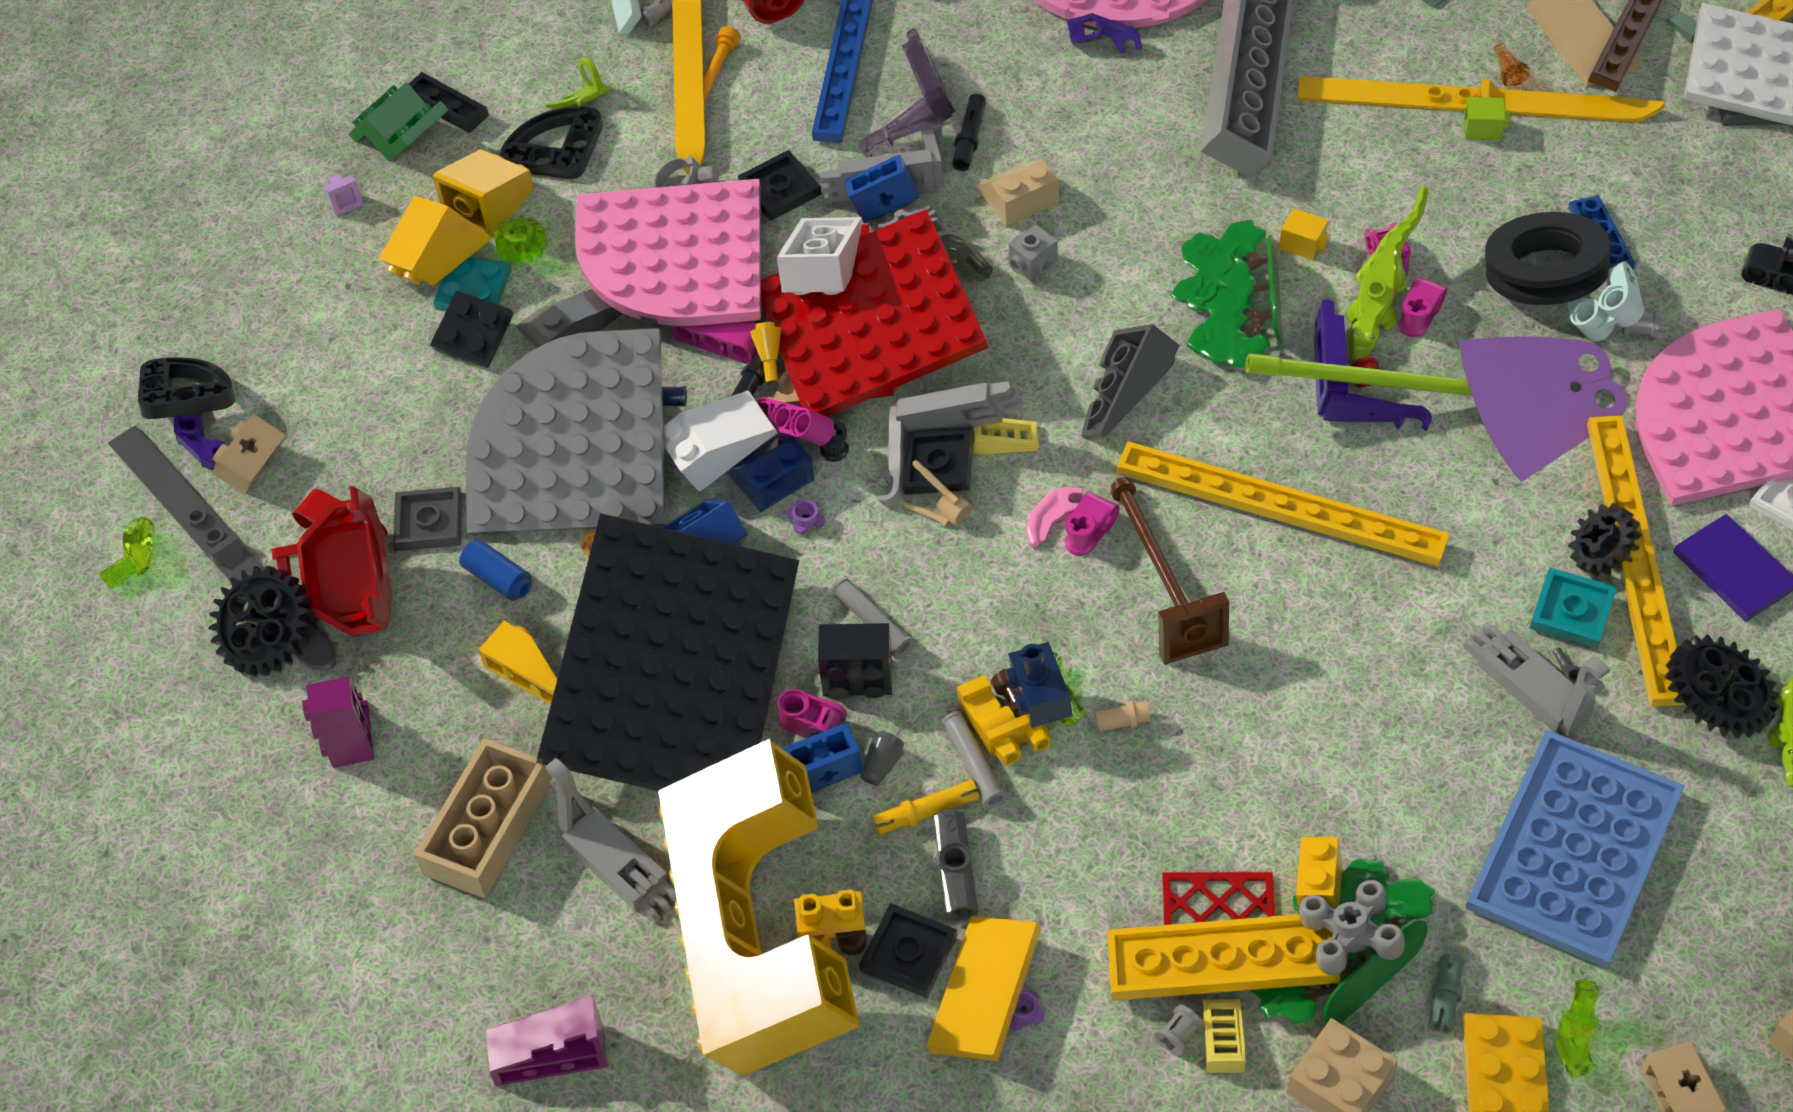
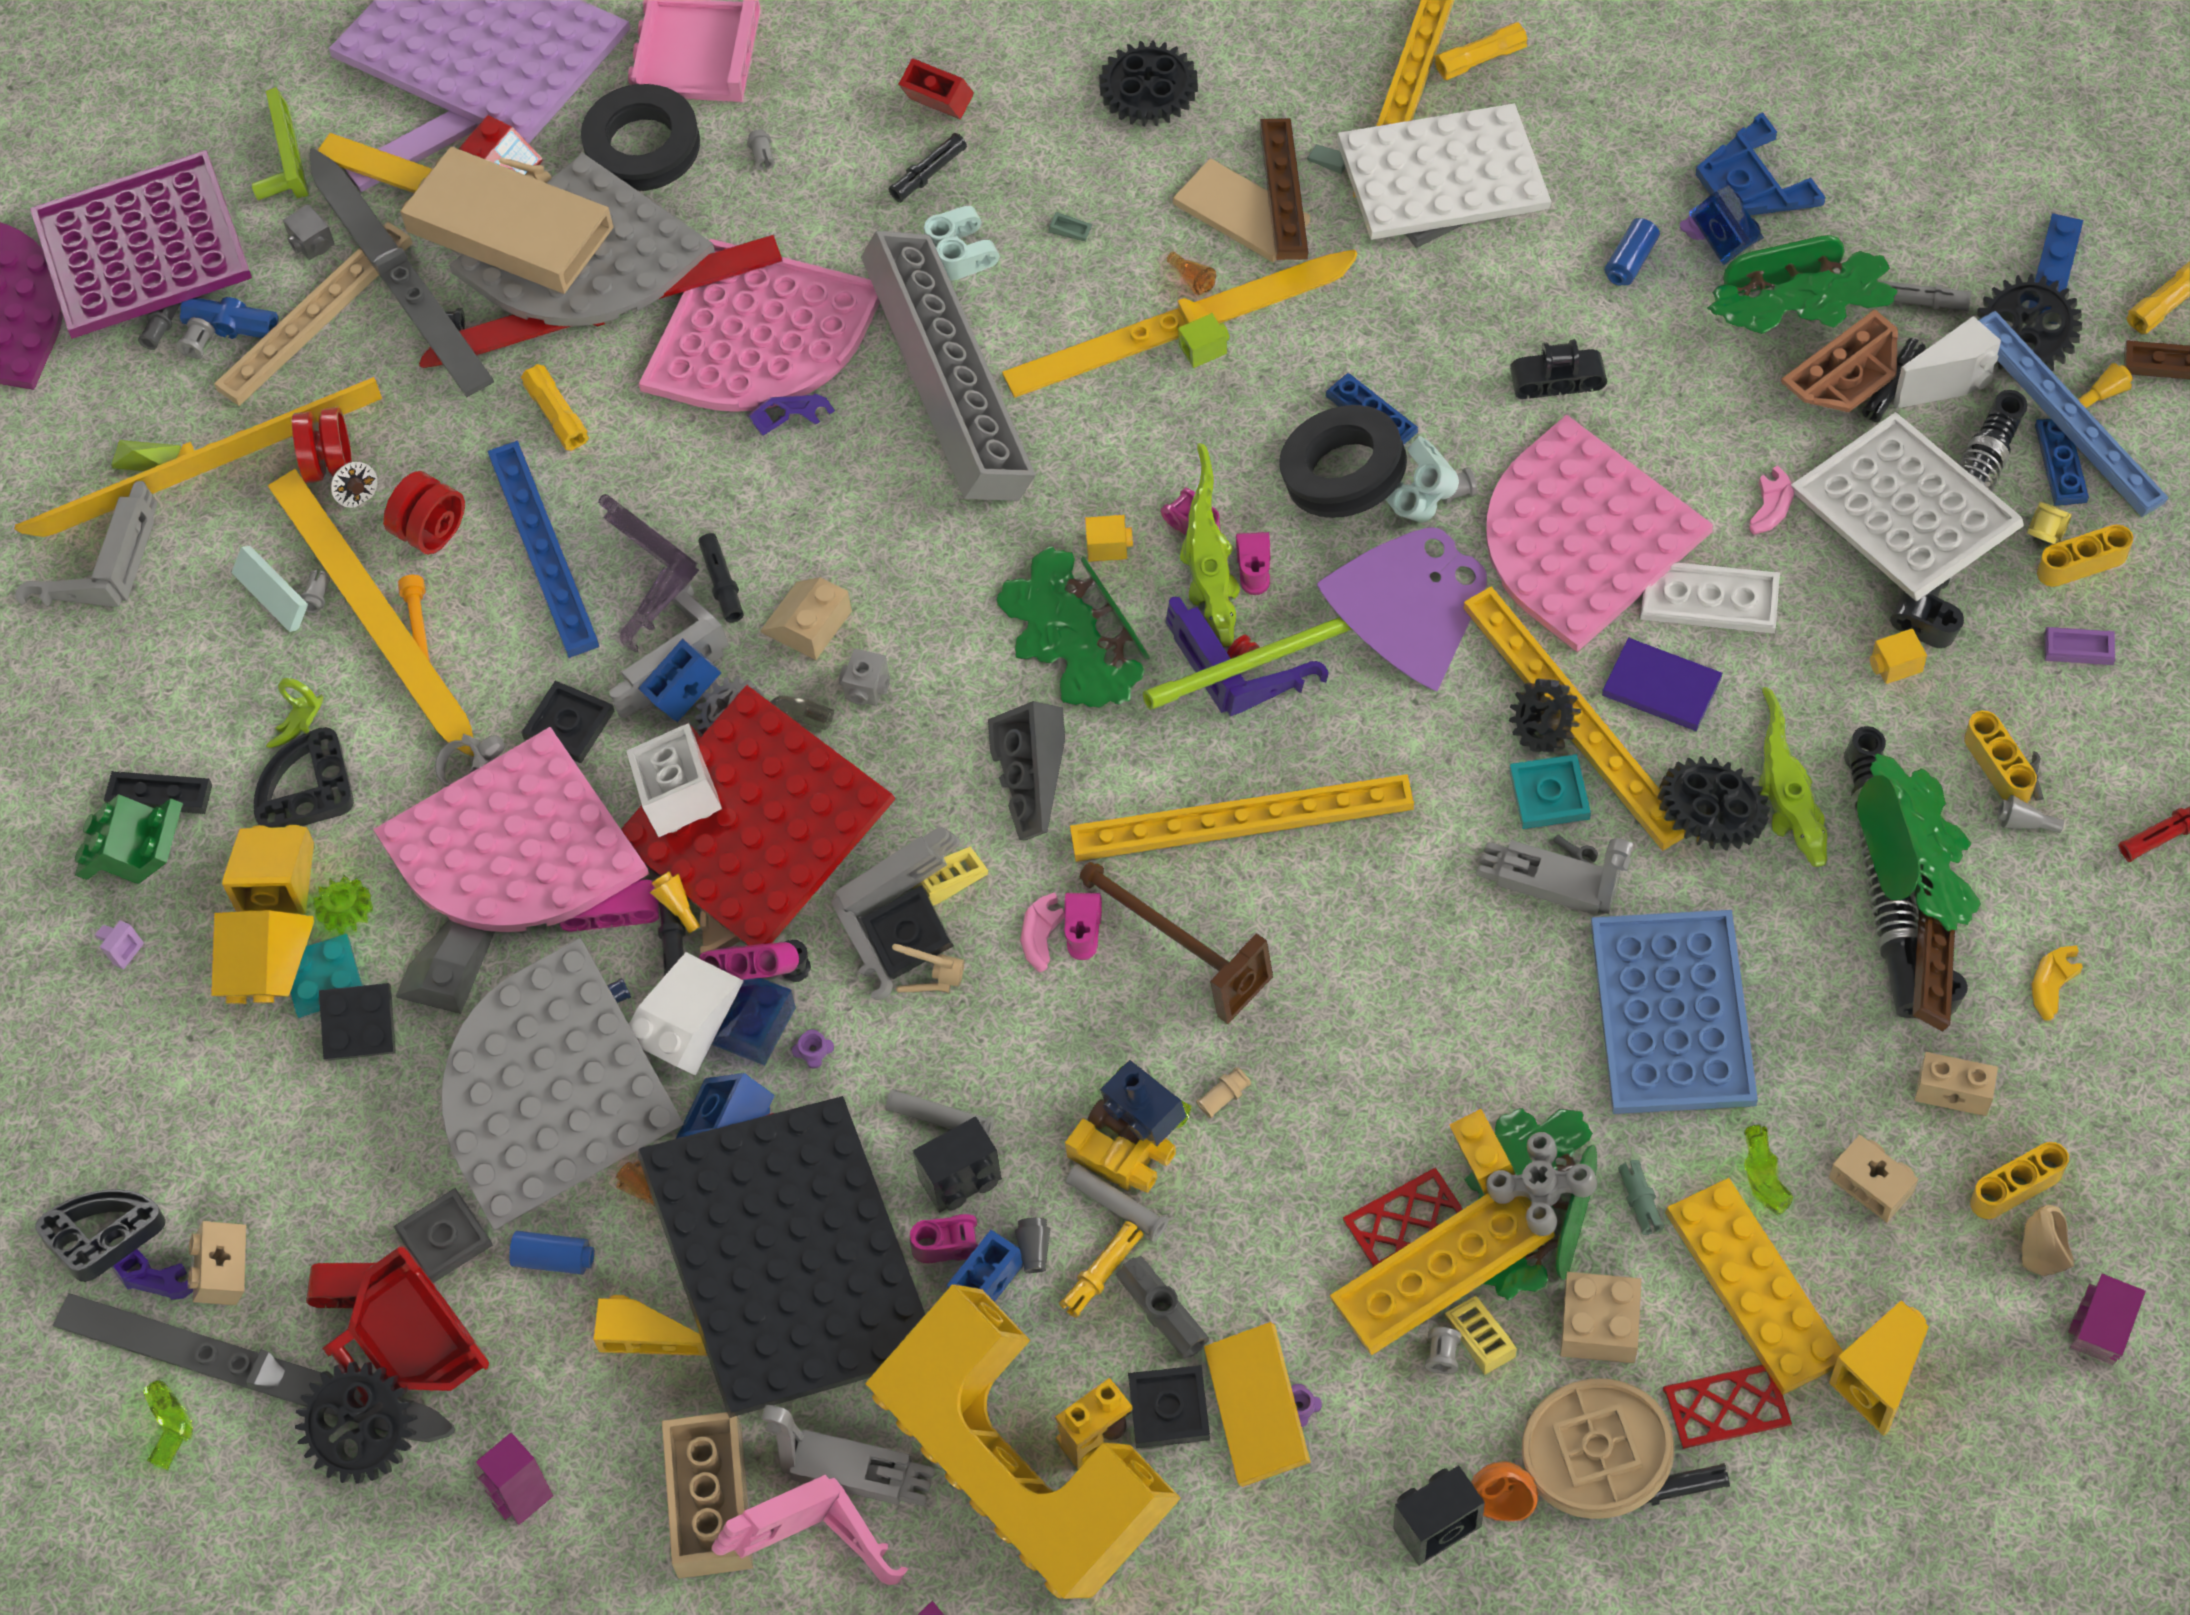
camera: 30 degrees left, 5 degrees up
(538, 867) = (800, 1510): none -> bright pink hinge

